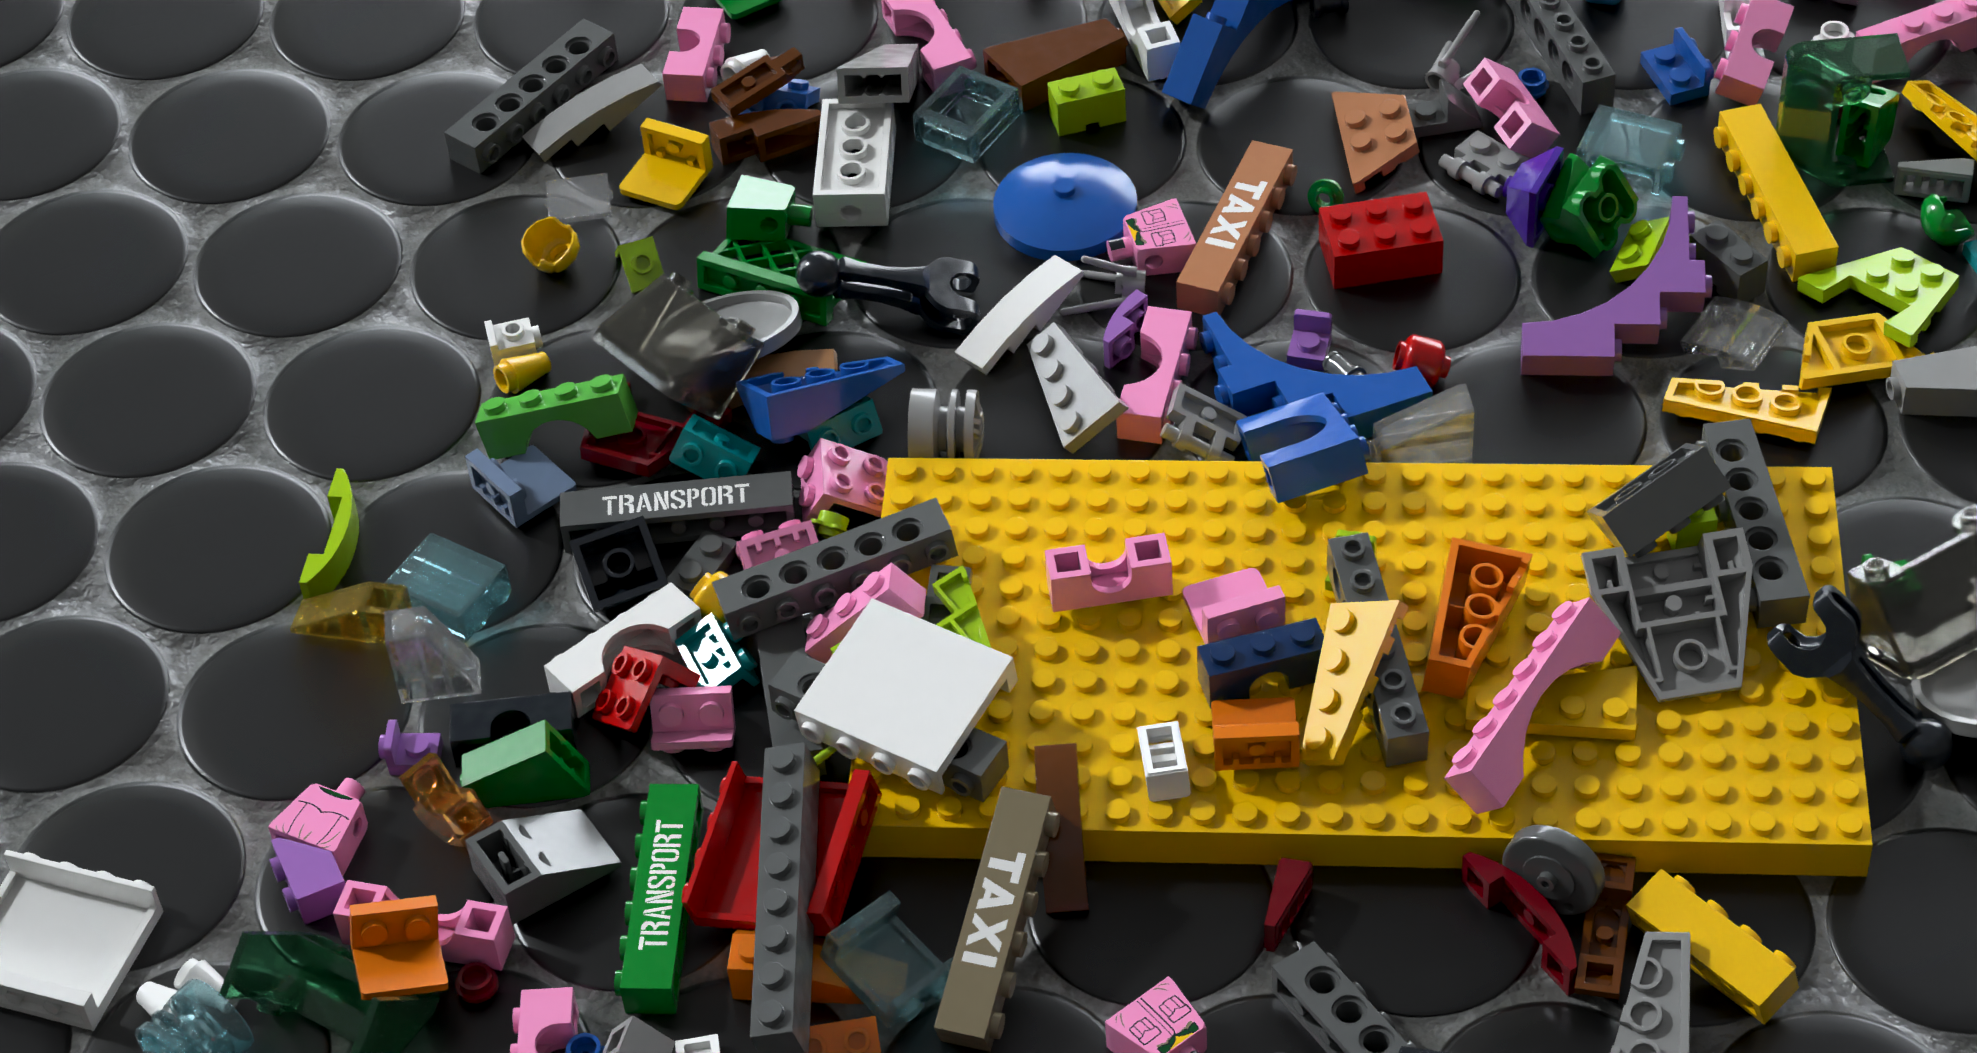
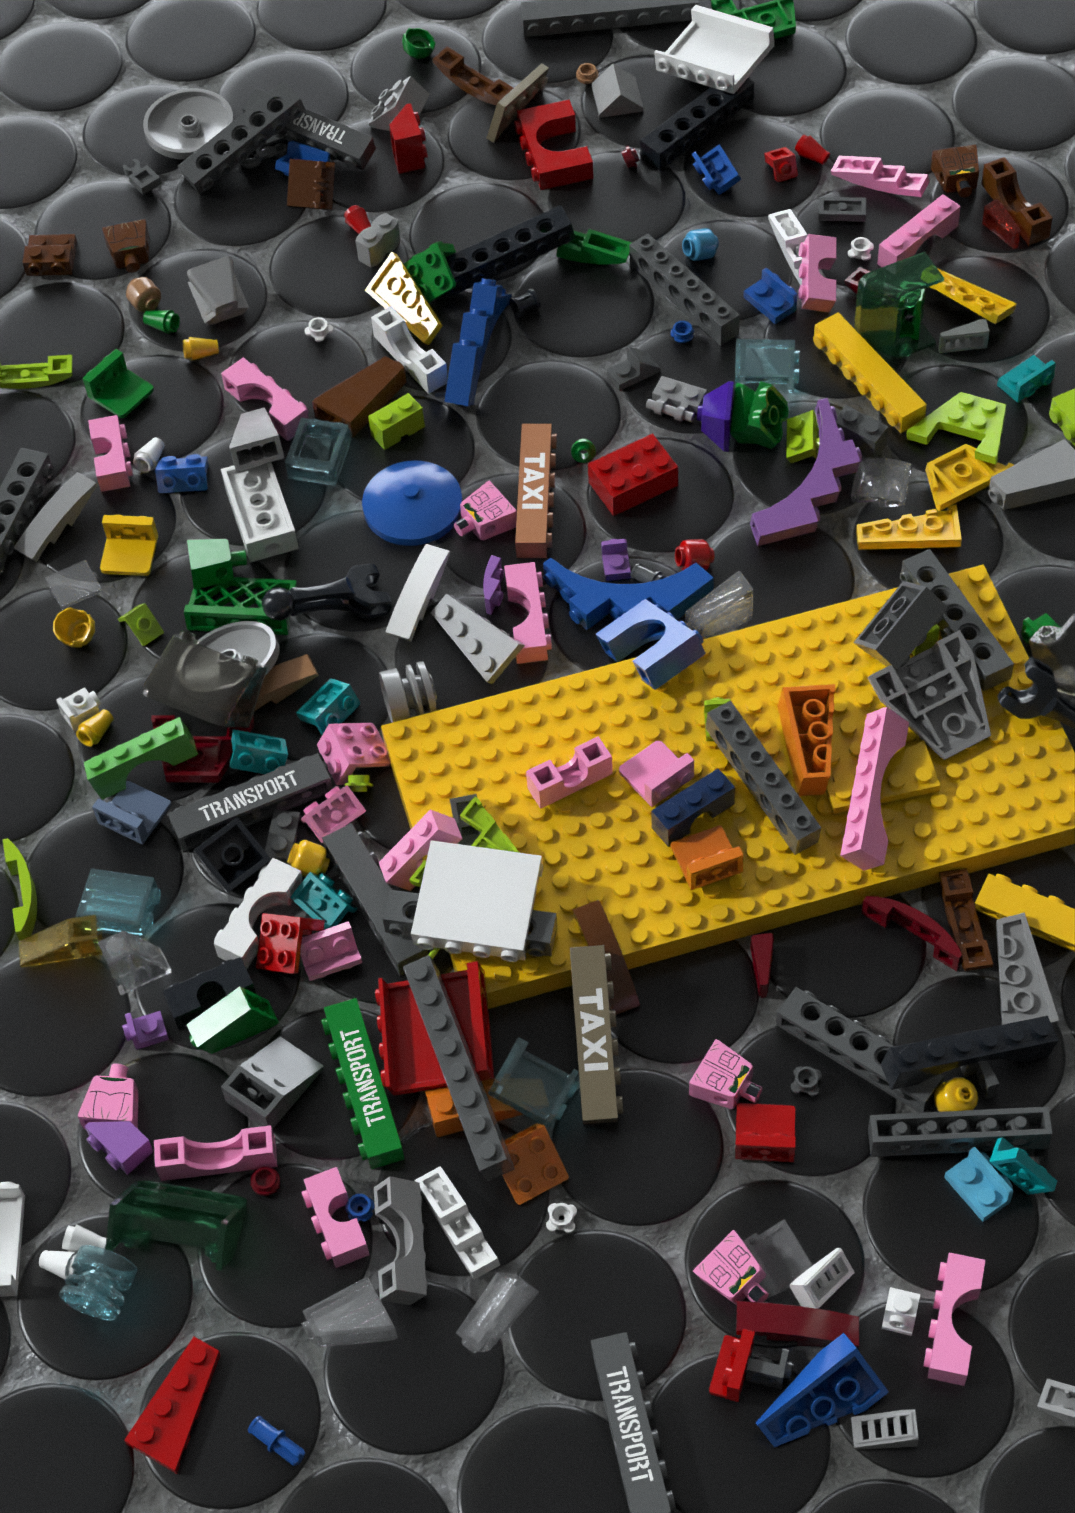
camera: 20 degrees left, 10 degrees up
(397, 947) = (211, 1179): orange bracket -> none
(442, 806) = (189, 1064): clear orange brick -> none
(757, 81) = (168, 467): reddish brown hinge -> none
(764, 134) = (186, 502): reddish brown slope -> none
(796, 405) = (305, 700): blue wedge -> none
(833, 567) = (390, 805): dark grey brick -> none
(1126, 282) = (480, 550): light grey plant -> none
(1164, 762) = (663, 907): white slope -> none
(1205, 417) = (576, 636): light grey plate -> none
(1345, 675) = (754, 797): yellow wing -> none
(1374, 133) = (595, 395): nougat wing -> none
(1445, 66) = (624, 336): light grey plant -> none
(1522, 120) = (691, 364): bright pink arch -> none
(1557, 867) = (925, 891): dark grey wheel -> none
(1942, 225) = (982, 368): green hair -> none

